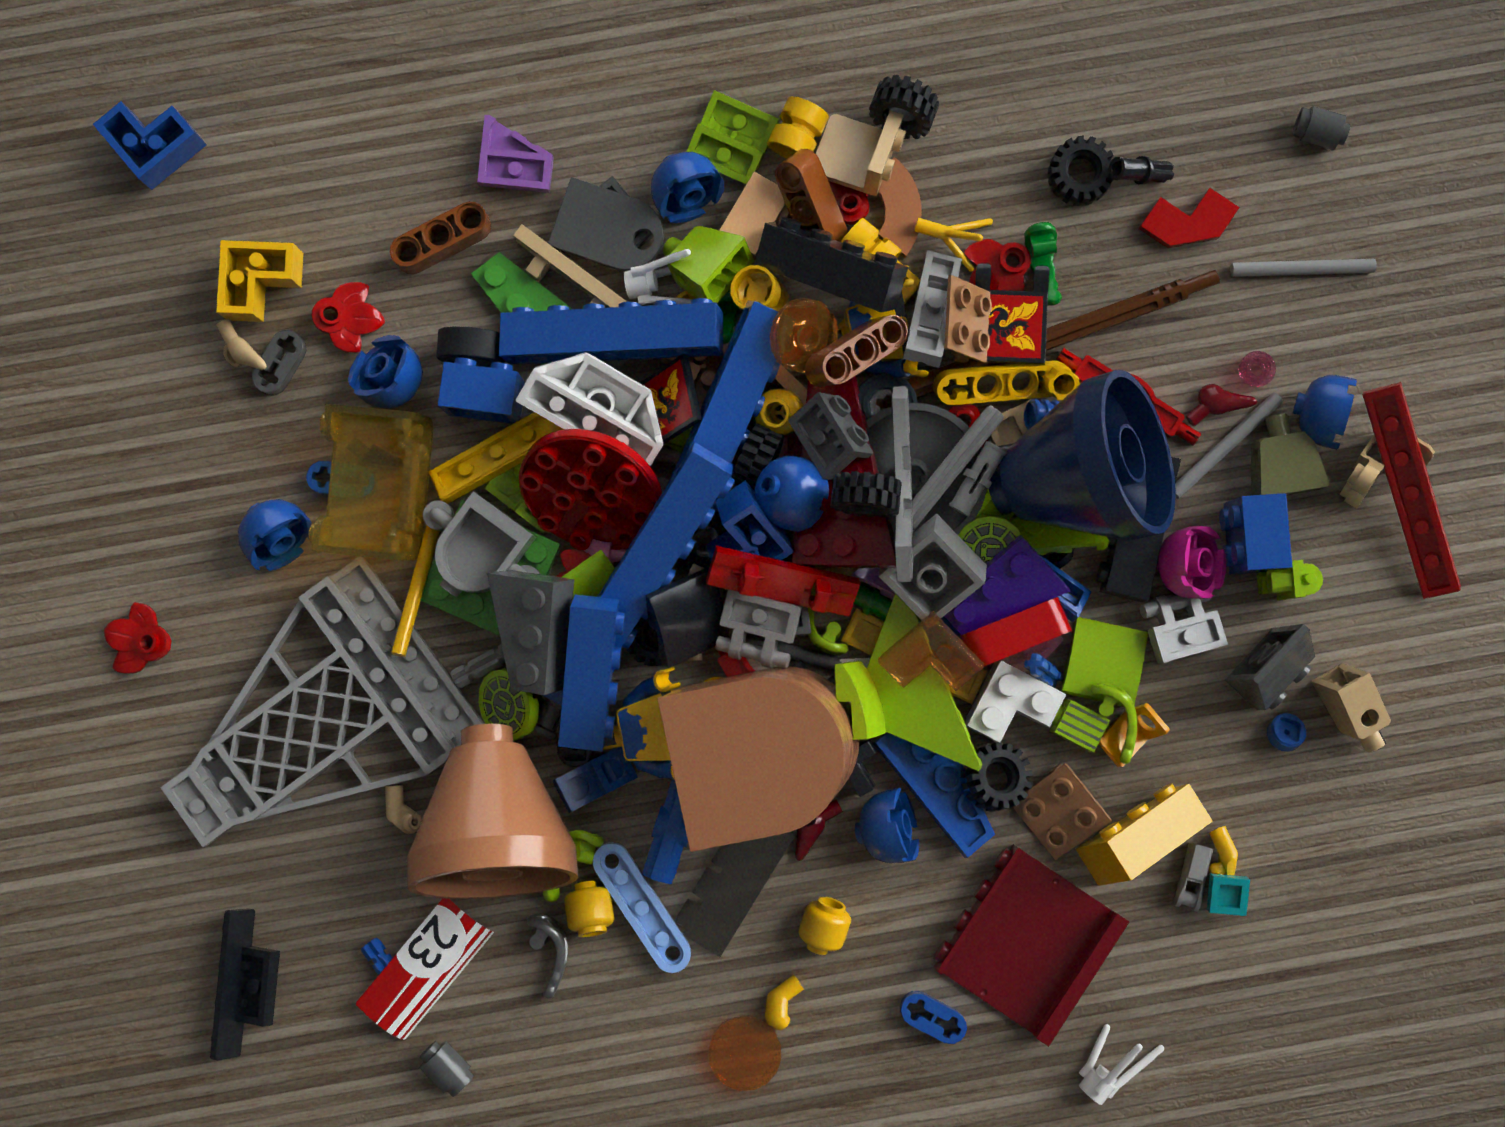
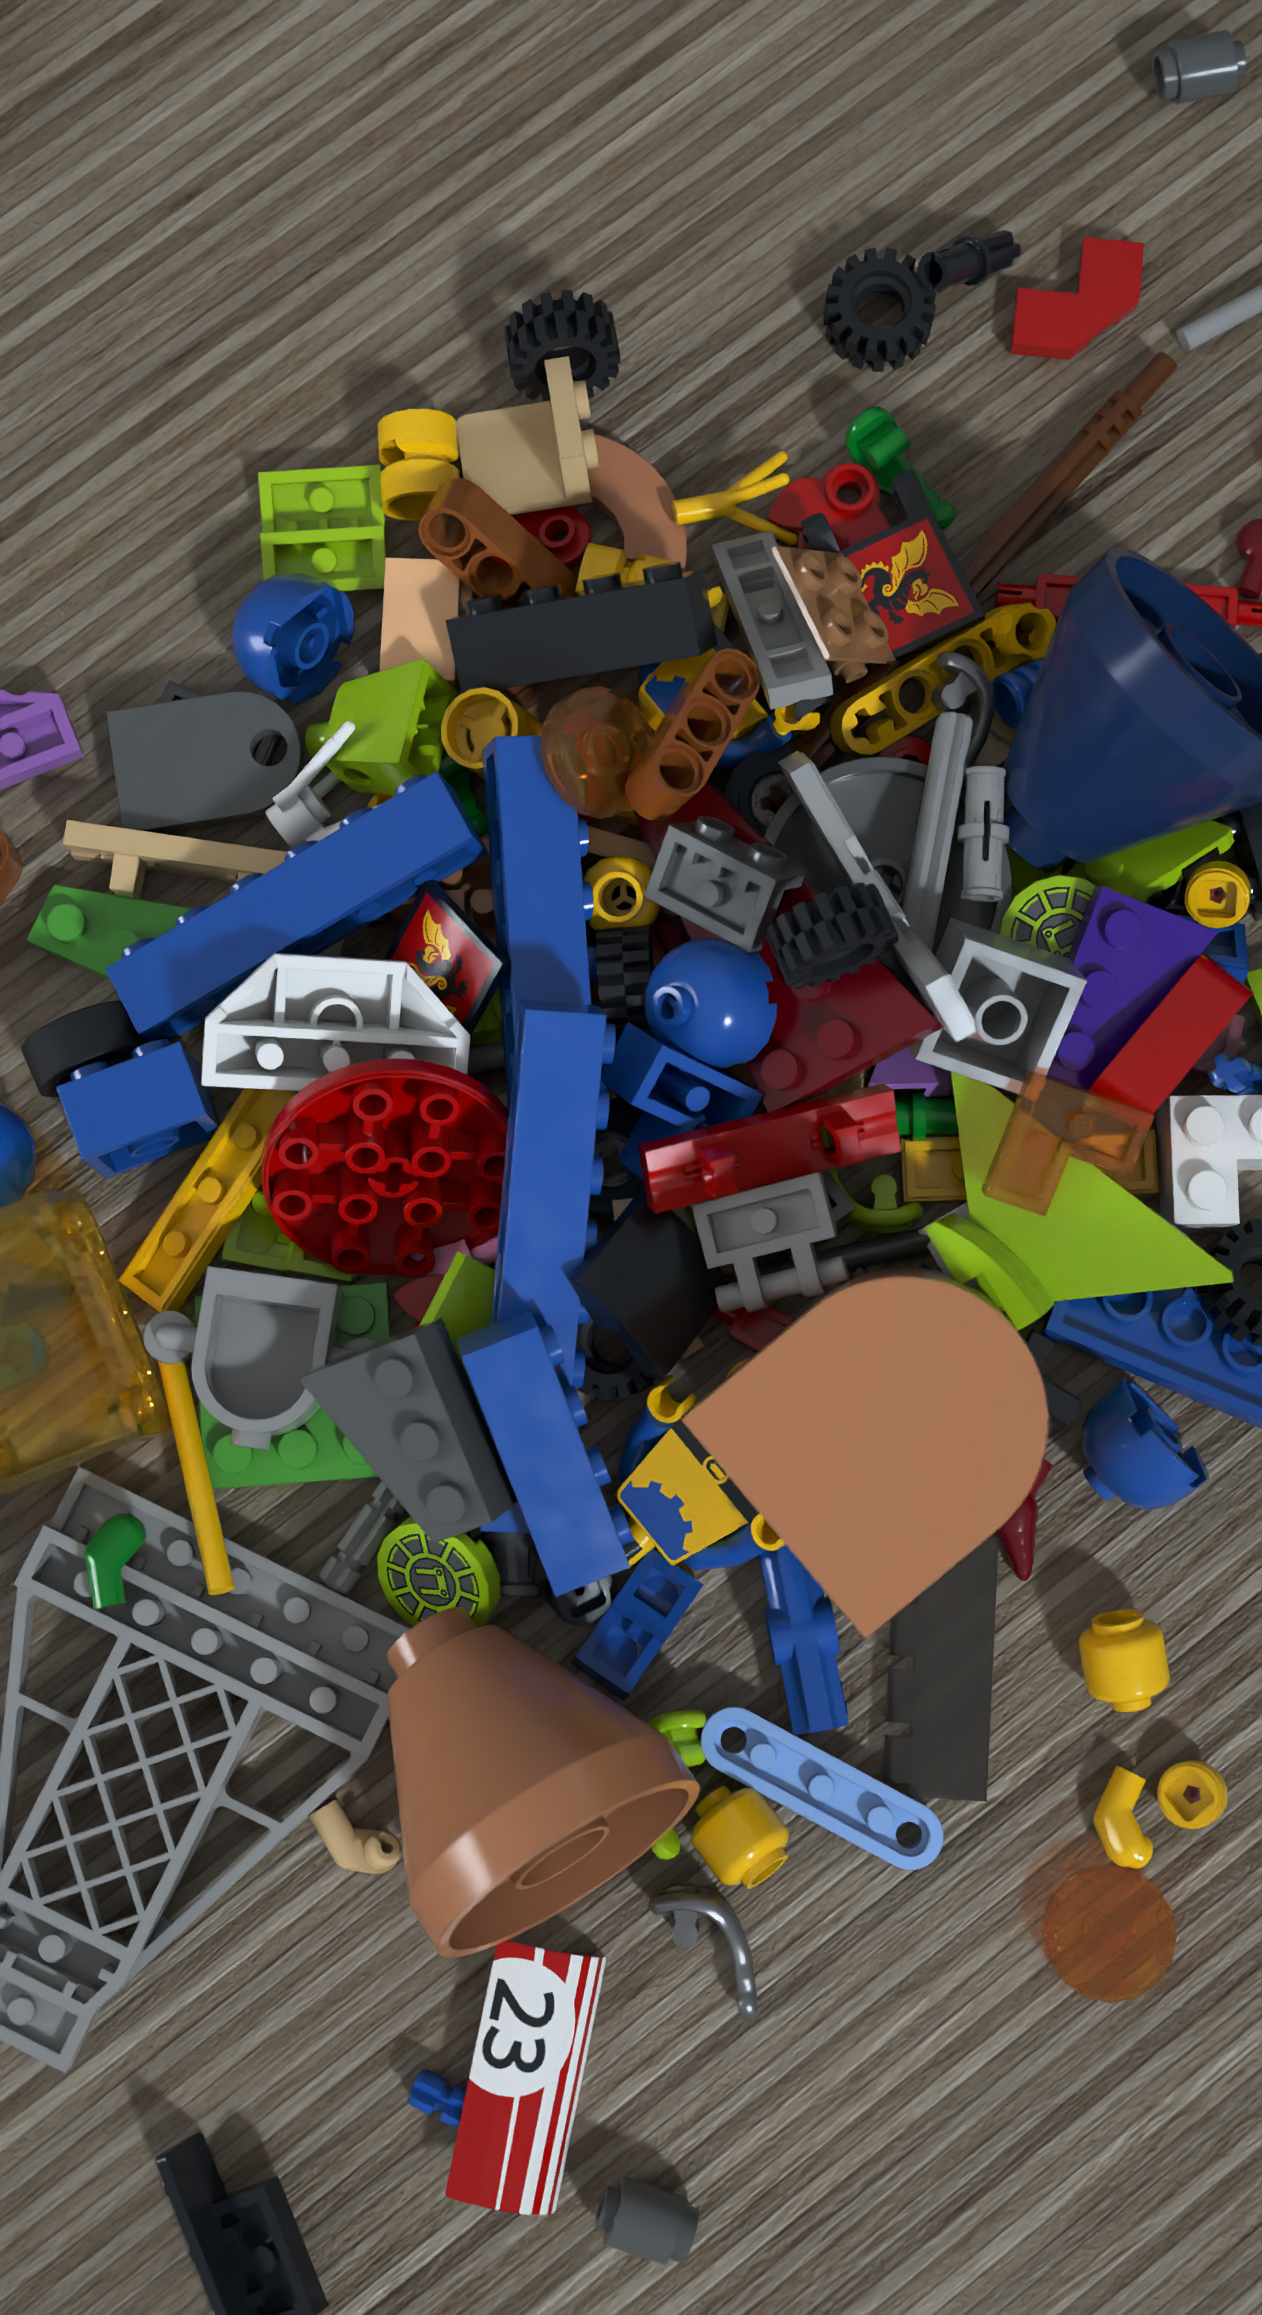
camera: 25 degrees left, 5 degrees down
(352, 607) = (106, 1556): none -> green arm
(822, 1008) = (1192, 1794): none -> yellow tile
(1012, 393) = (965, 680): none -> flat silver piece
(1084, 570) = (1217, 894): none -> yellow tile

